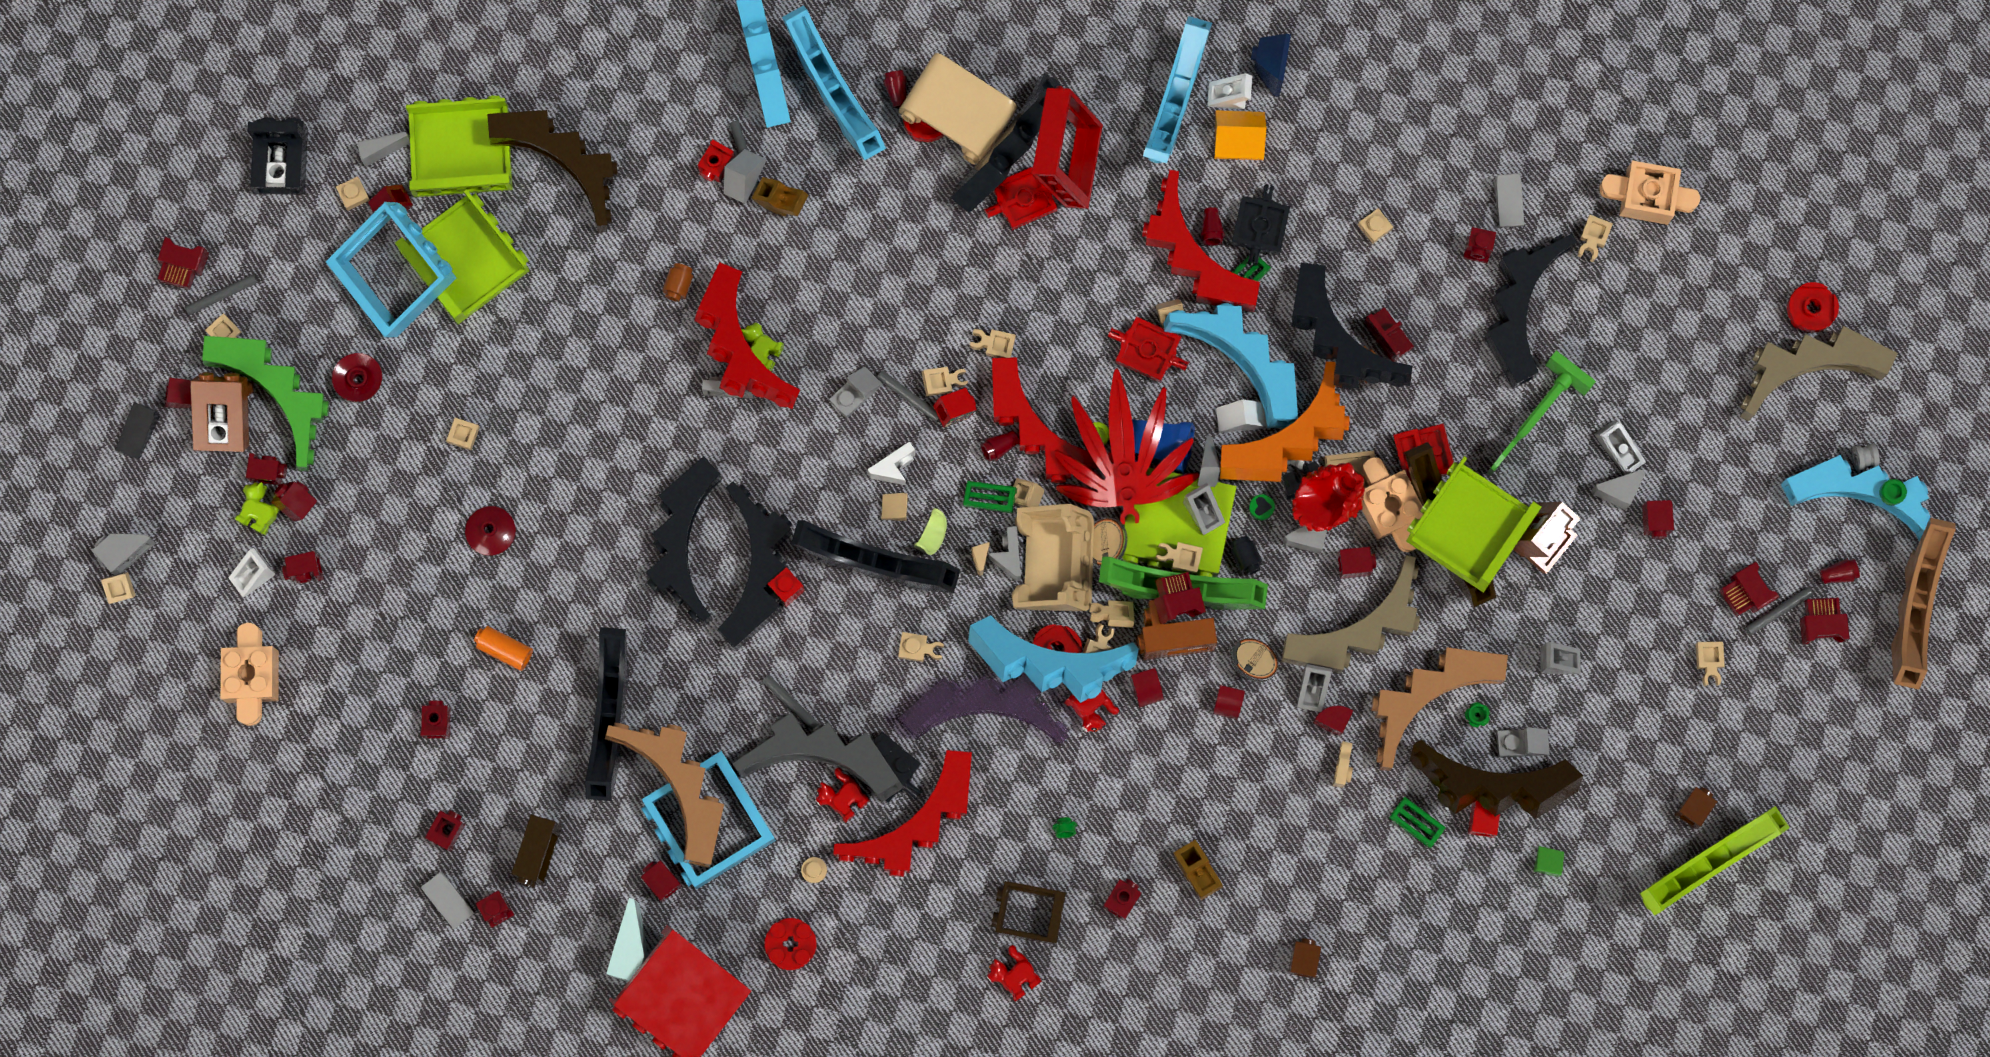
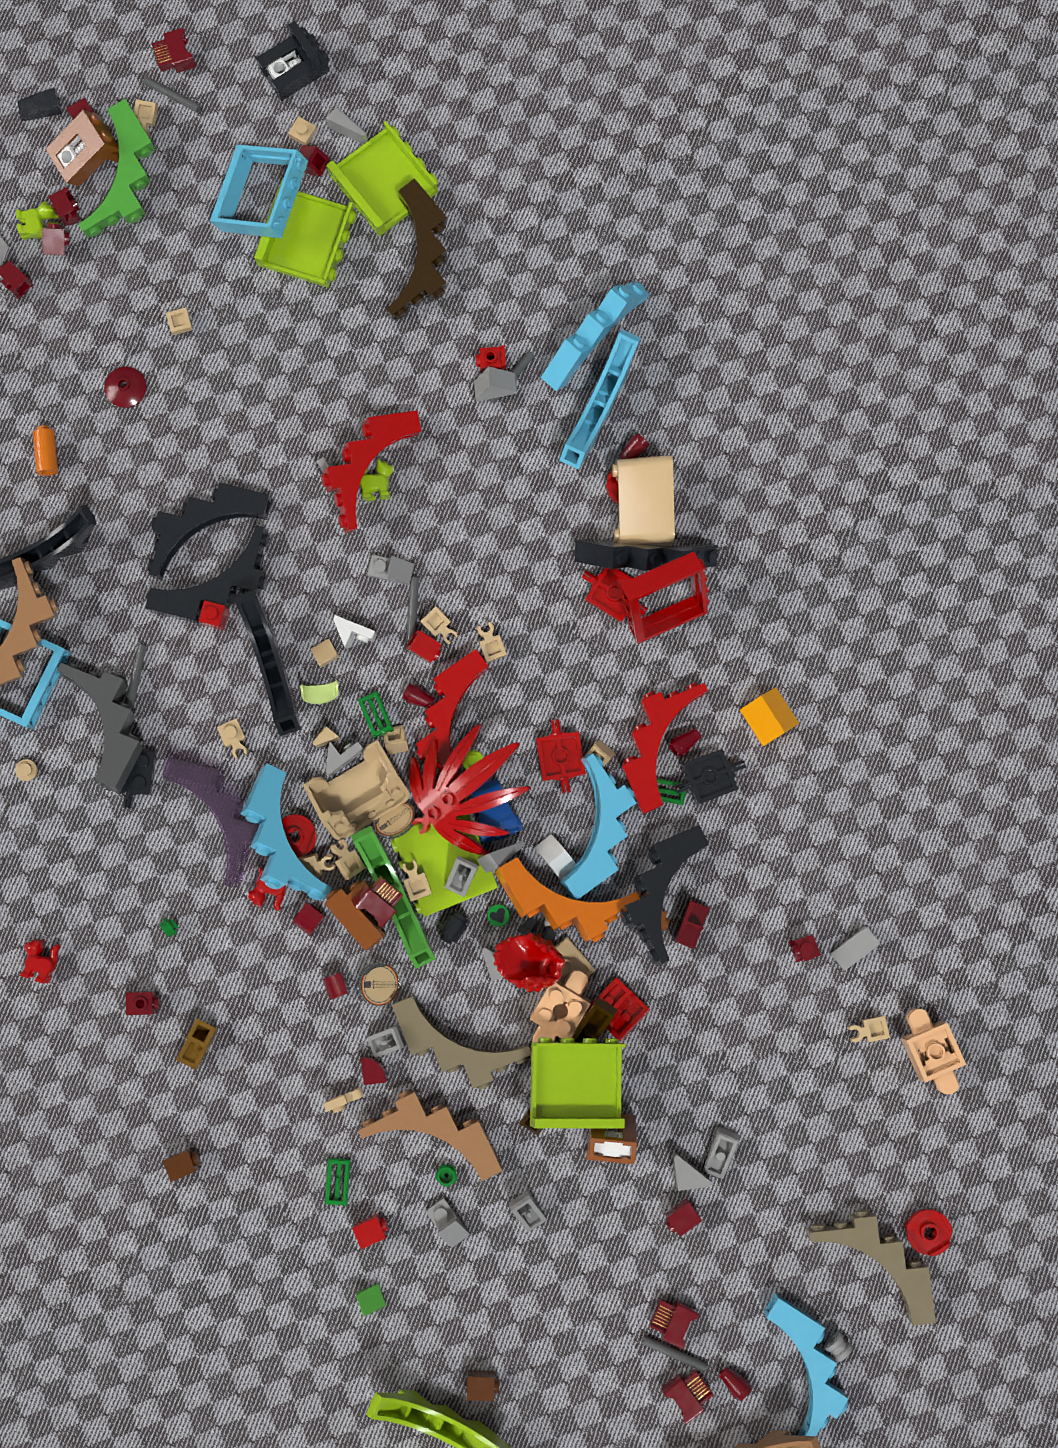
camera: 60 degrees right, 5 degrees up
(351, 367) = (167, 215): dark red dish -> none
(678, 282) = (386, 393): dark orange brick -> none
(779, 198) = (495, 420): pearl gold brick -> none
(844, 798) = (86, 756): red animal -> none
(895, 848) = (77, 817): red arch -> none
(1054, 925) = (71, 948): dark brown window -> none
(1178, 90) = (766, 651): medium azure arch -> none
(1230, 92) = (795, 688): white slope -> none
(1271, 60) = (840, 702): dark blue slope -> none
(1356, 562) = (501, 1012): dark red brick -> none
(1375, 226) = (767, 861): tan plate -> none
(1496, 792) = (380, 1200): dark brown arch -> none
(1509, 339) = (804, 995): black arch -> none
(1568, 375) = (748, 1079): bright green piece -> none
(1710, 657) = (603, 1324): tan plate -> none
(1893, 492) = (822, 1388): green tile -> none

